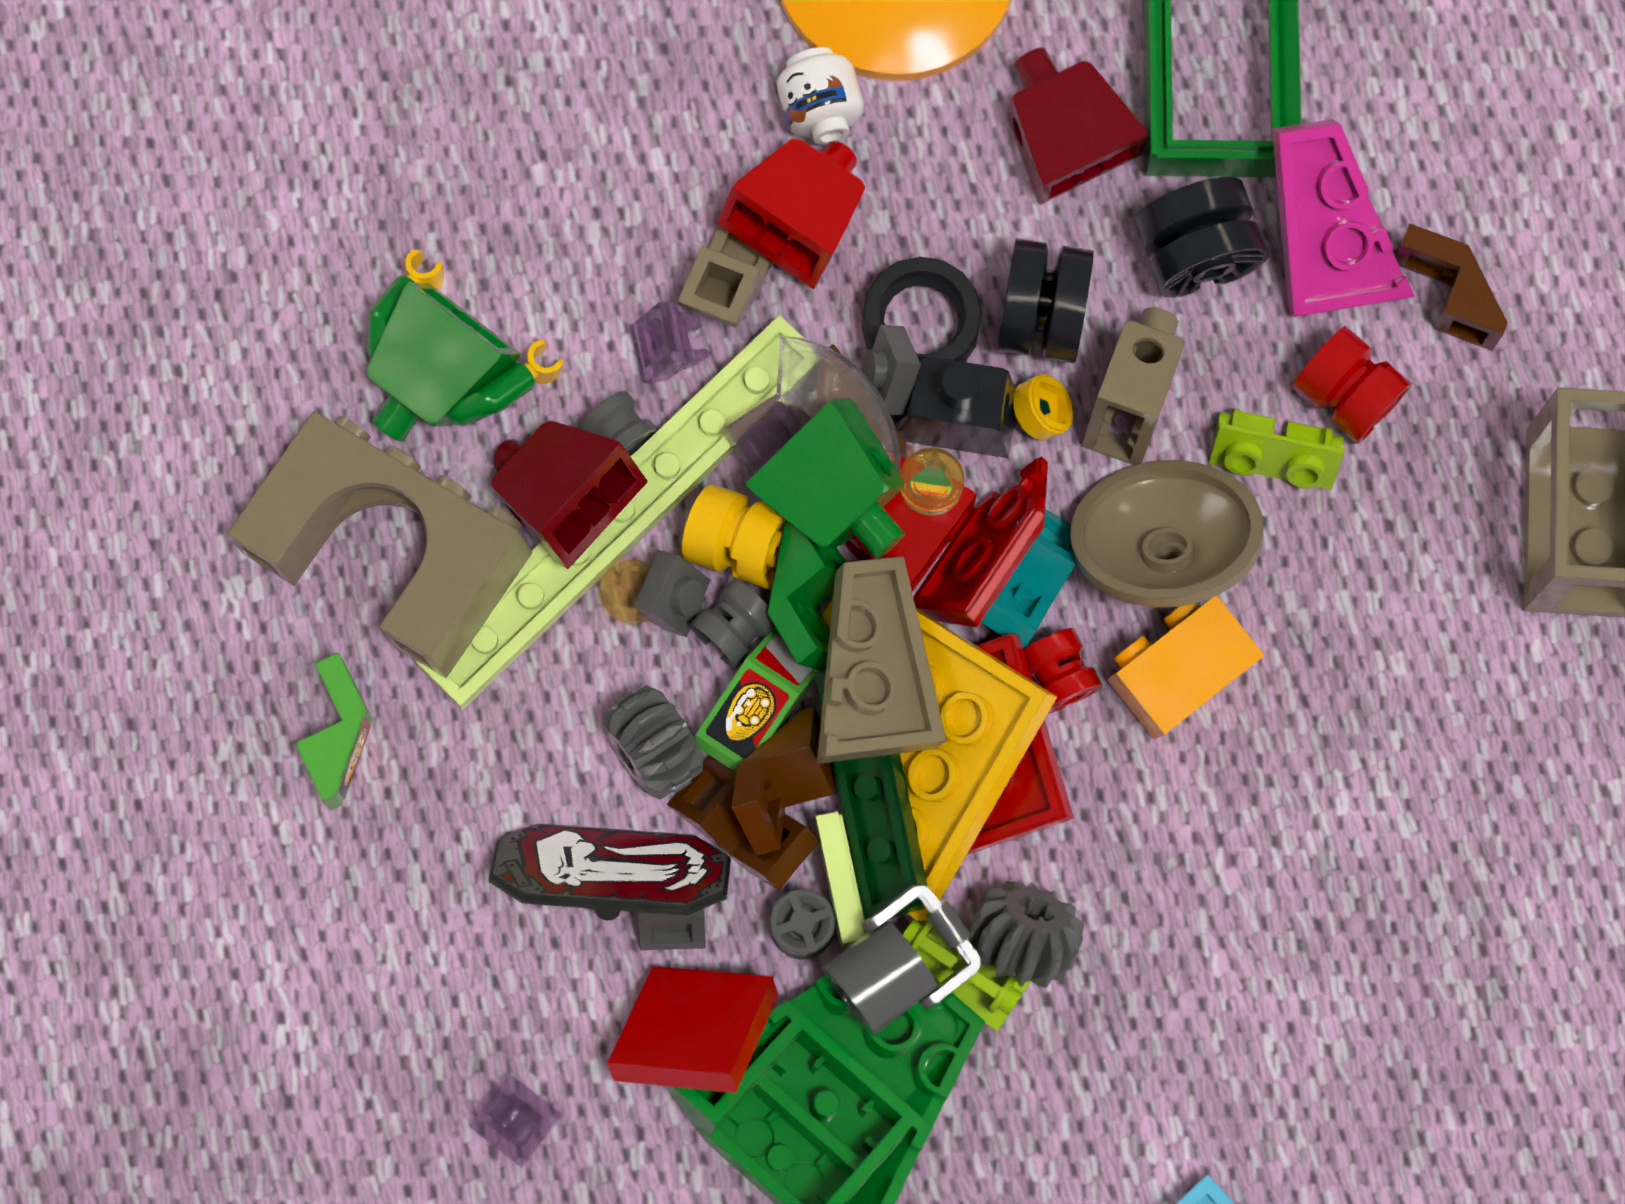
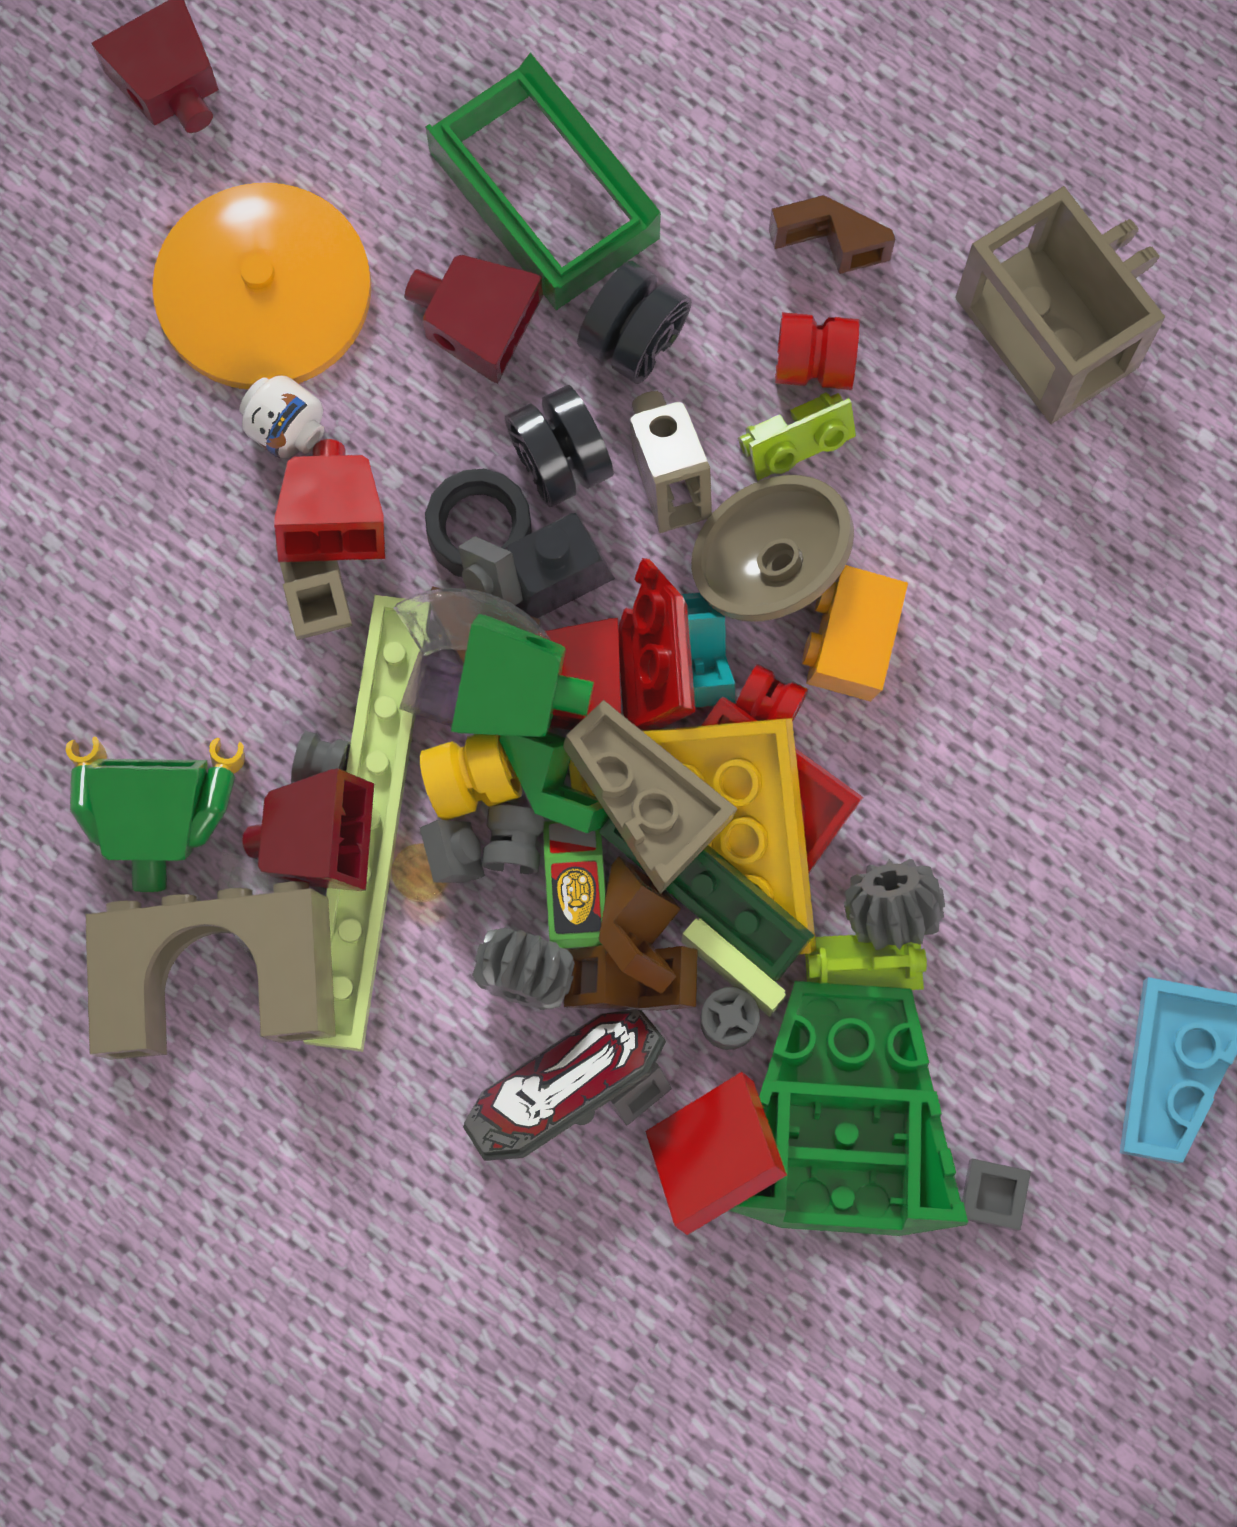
camera: 35 degrees left, 0 degrees up
(335, 751) = (293, 1154): bright green slope -> none
(515, 1121) = (633, 1318): clear purple tile -> none
(664, 343) = (305, 675): clear purple tile -> none
(884, 973) = (824, 1007): dark grey piece -> none
(932, 481) = (581, 631): clear yellow tile -> none
(1043, 407) = (613, 523): yellow tile -> none
(1329, 229) = (719, 253): dark pink wing -> none

